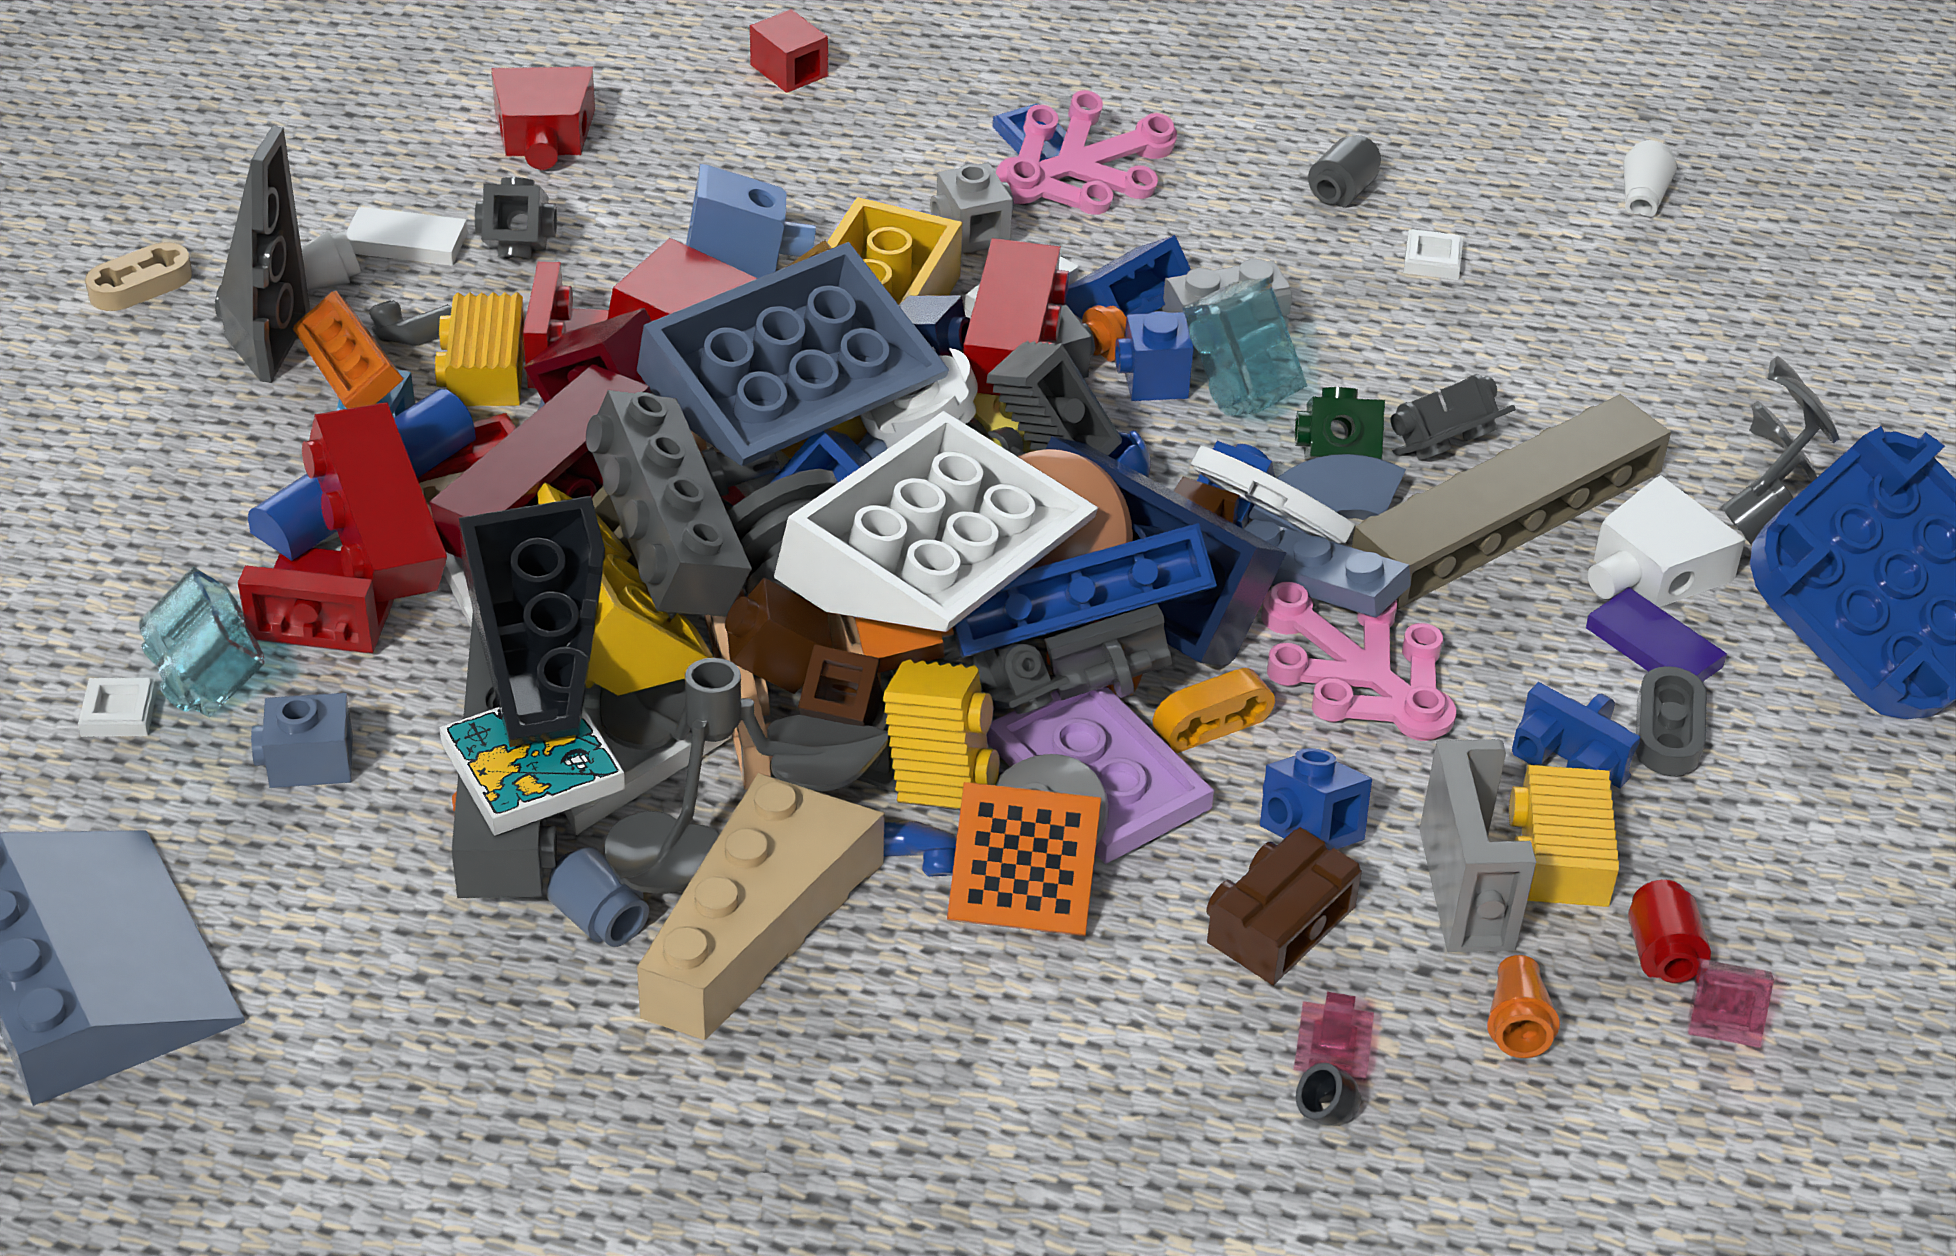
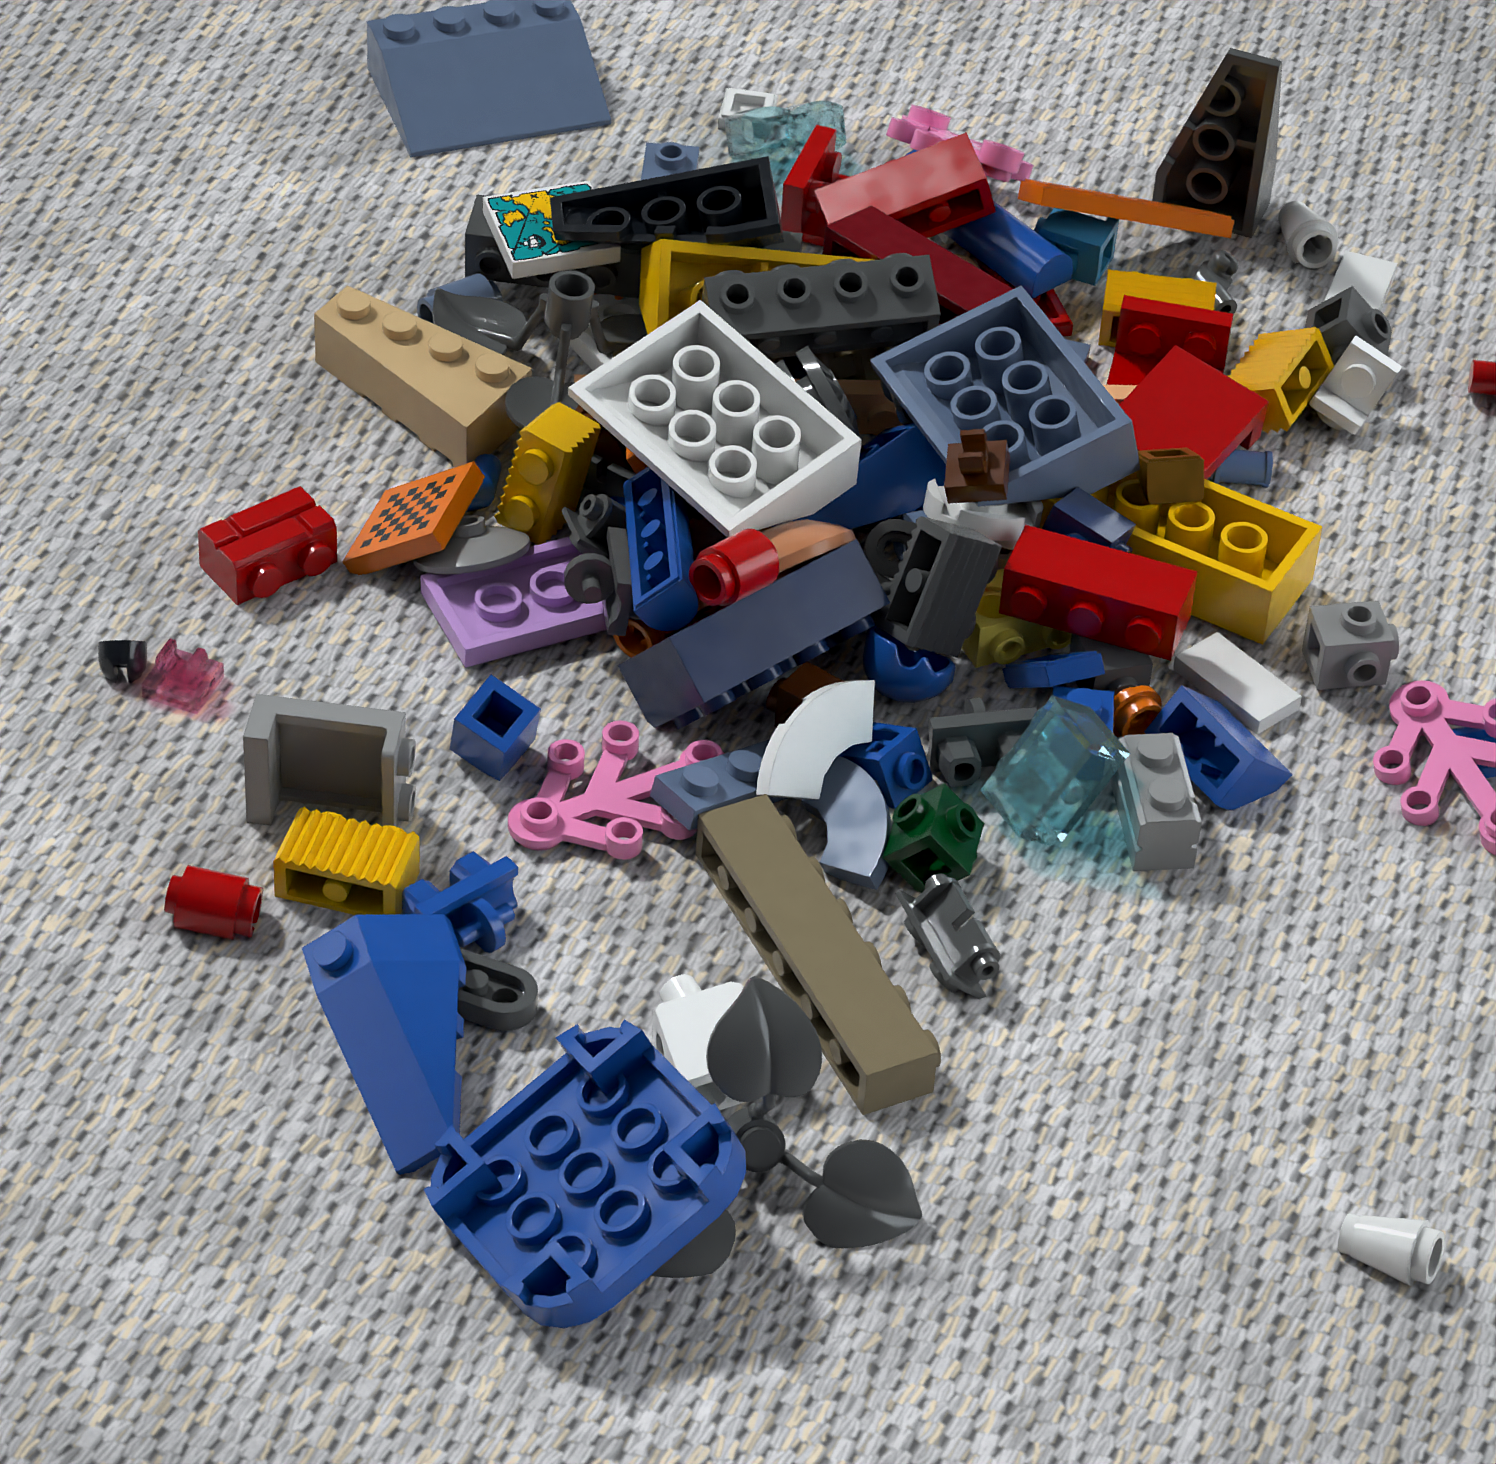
camera: 100 degrees right, 0 degrees up
(138, 276) = (1310, 136): tan beam -> none
(207, 505) = (927, 127): none -> bright pink plant
(585, 213) = (1354, 386): none -> white bracket
(590, 254) = (1285, 371): none -> yellow brick
(608, 344) = (1088, 329): dark red brick -> none
(744, 222) = (1310, 489): medium blue torso -> none
(925, 357) = (977, 468): none -> reddish brown tile
(1099, 992) = (268, 546): none -> red brick
(1105, 351) = (1053, 669): none -> blue tile
(1157, 494) = (734, 568): none -> red brick
(1181, 415) = (973, 740): none -> dark grey hips
(1213, 709) = (571, 679): light orange beam -> none
(1282, 904) = (322, 660): reddish brown brick -> none
(1317, 796) = (428, 691): blue brick -> none
(1345, 170) = (1417, 965): dark grey brick -> none
(1346, 724) = (494, 728): none -> blue brick
(1433, 254) = (1268, 1020): white tile -> none
(1521, 1011) = (169, 789): orange cone -> none
(1653, 636) = (592, 1010): dark purple tile -> none
(1730, 1003) = (122, 917): clear pink tile -> none
(1761, 748) = (395, 1014): none -> blue wedge

